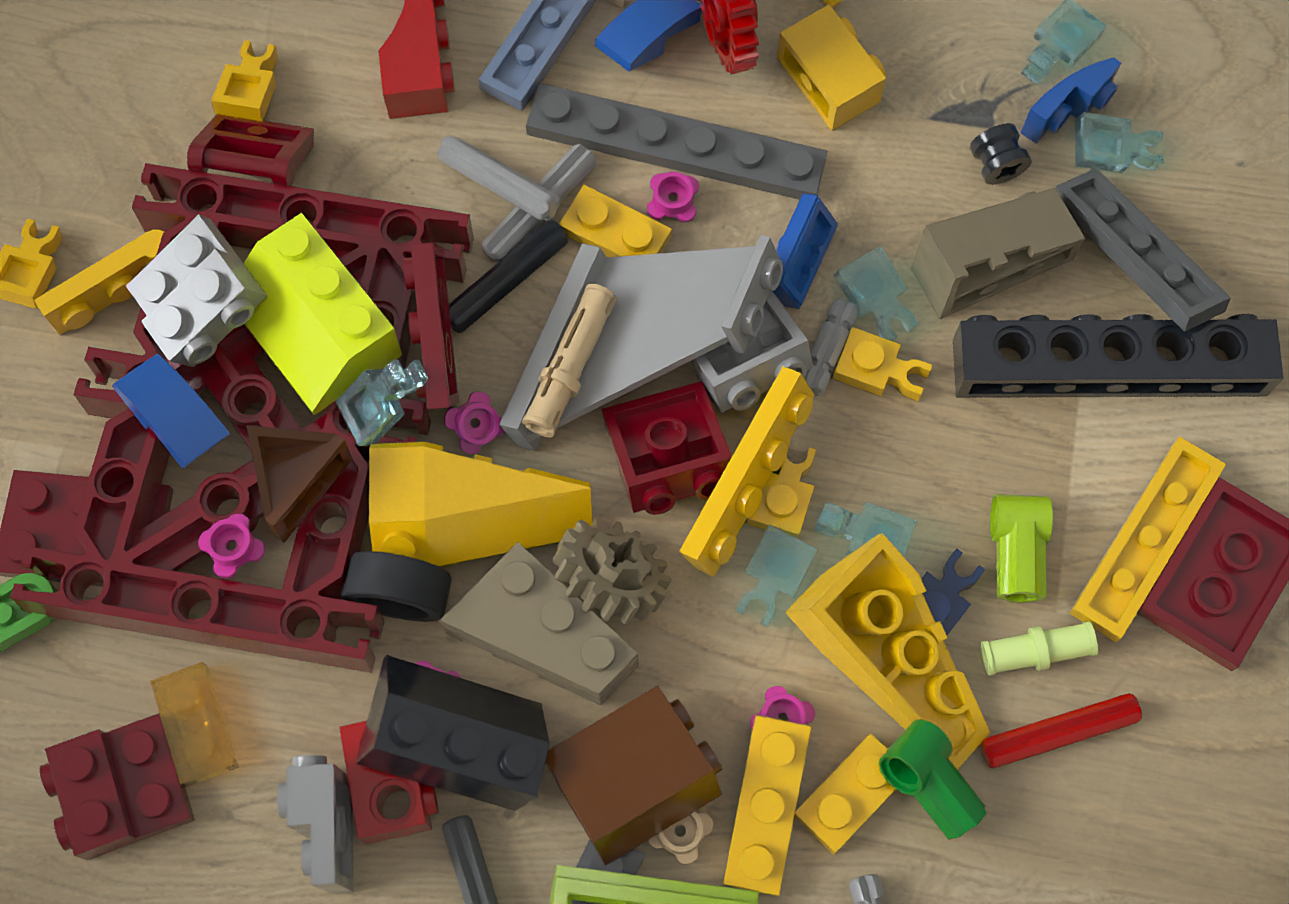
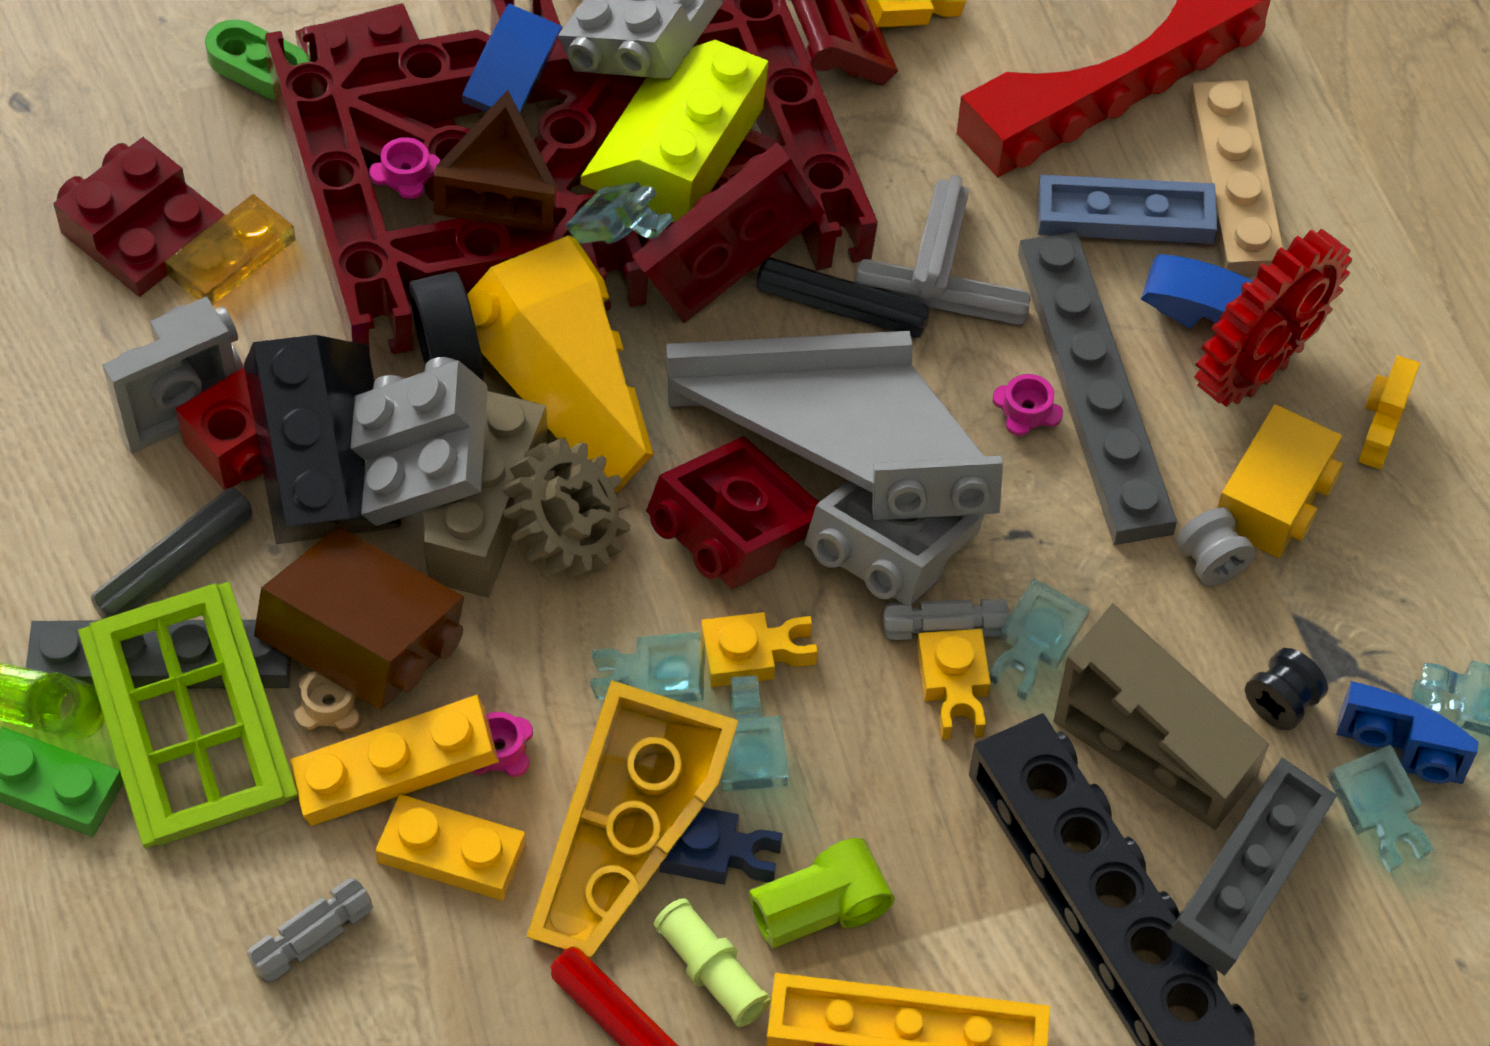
camera: 60 degrees right, 15 degrees down
(460, 419) = (655, 321): dark pink plate -> none
(512, 654) = (420, 440): none -> light grey plate
(561, 378) = (768, 368): tan pin -> none
(613, 226) = (959, 367): yellow plate -> none
(742, 482) = (746, 585): yellow plate -> none
(803, 249) = (1038, 541): blue plate -> none
(864, 136) = (1215, 546): none -> light grey wheel
(922, 768) = (507, 883): green piece -> none

